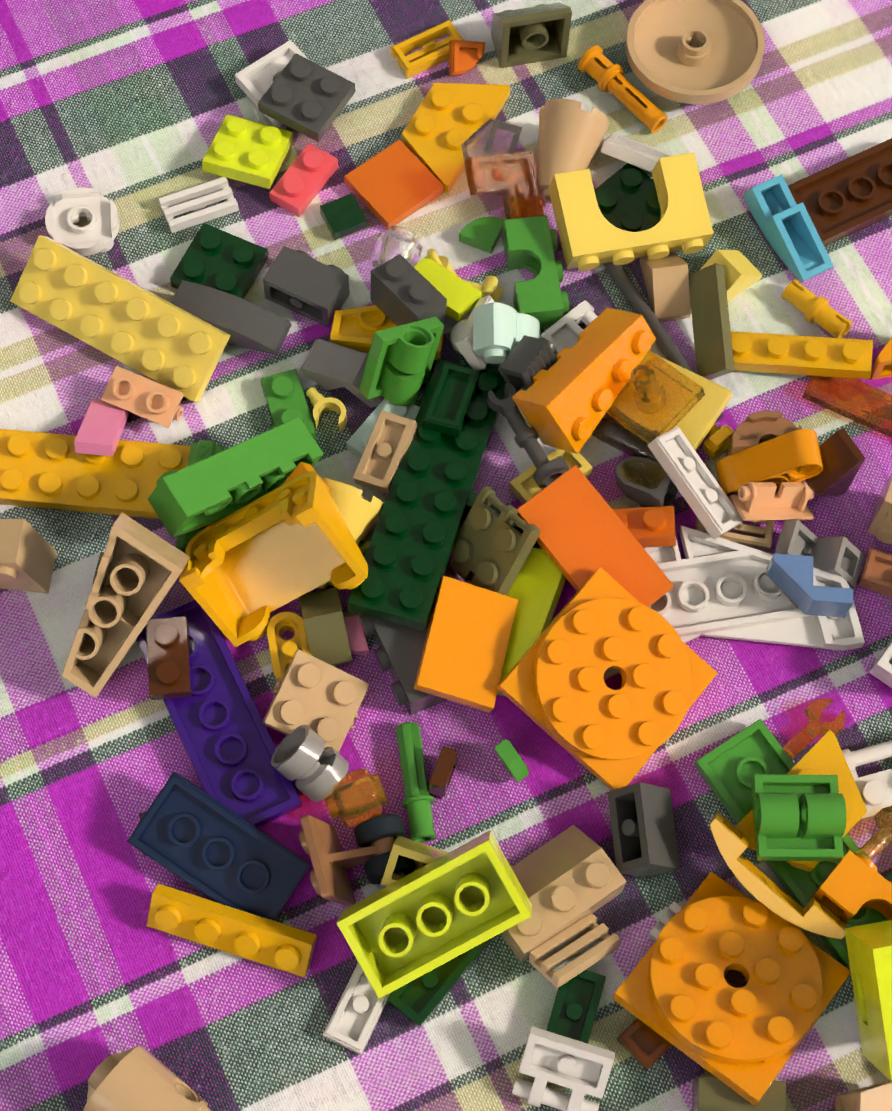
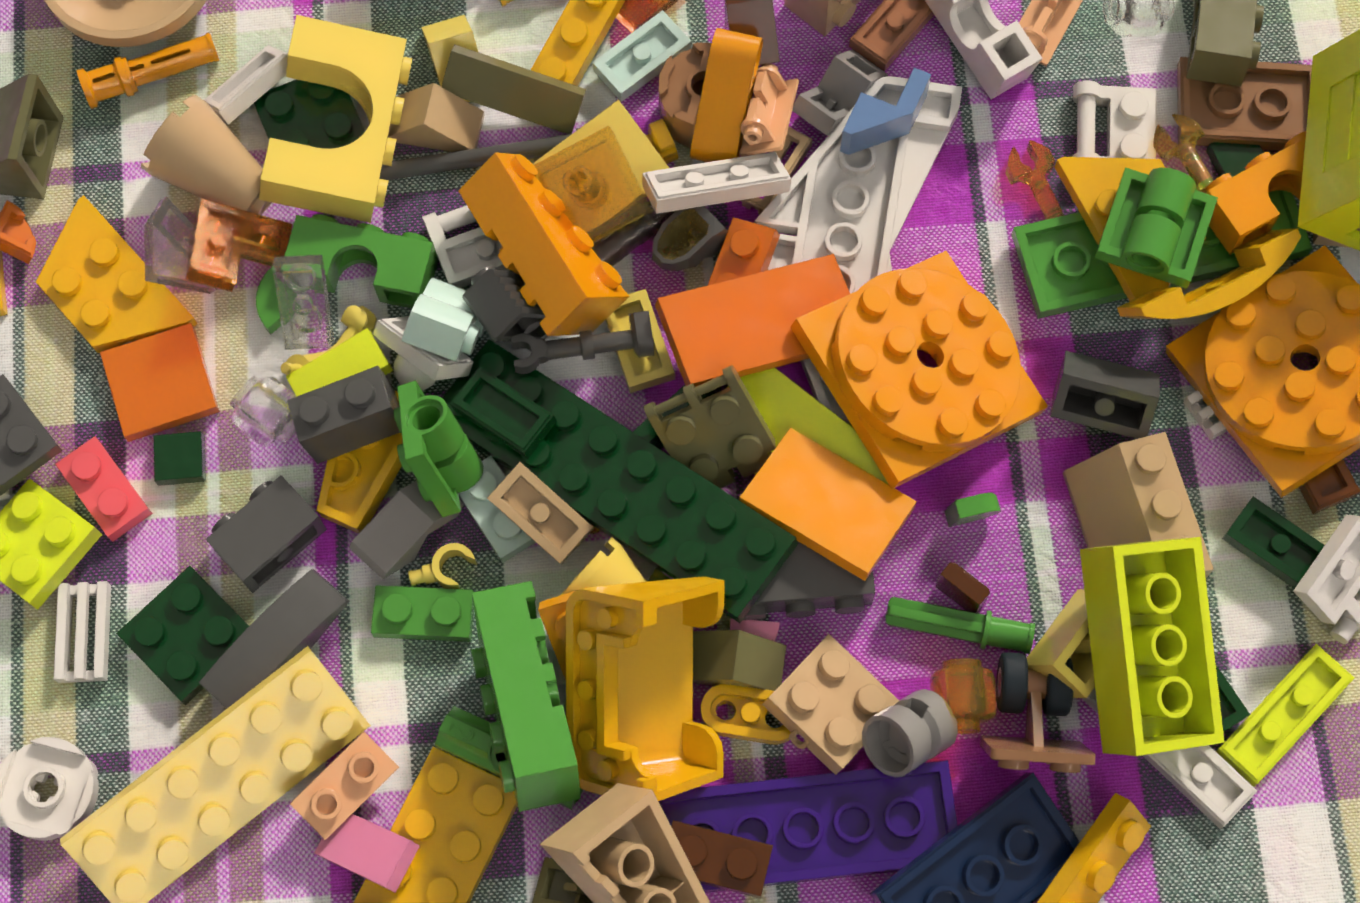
camera: 65 degrees left, 5 degrees up
(434, 1060) = (1285, 715): none -> neon yellow tile
(483, 244) = (303, 302): none -> clear plate
(569, 945) = (1200, 488): tan tile -> none
(776, 395) = (640, 55): none -> light aqua plate

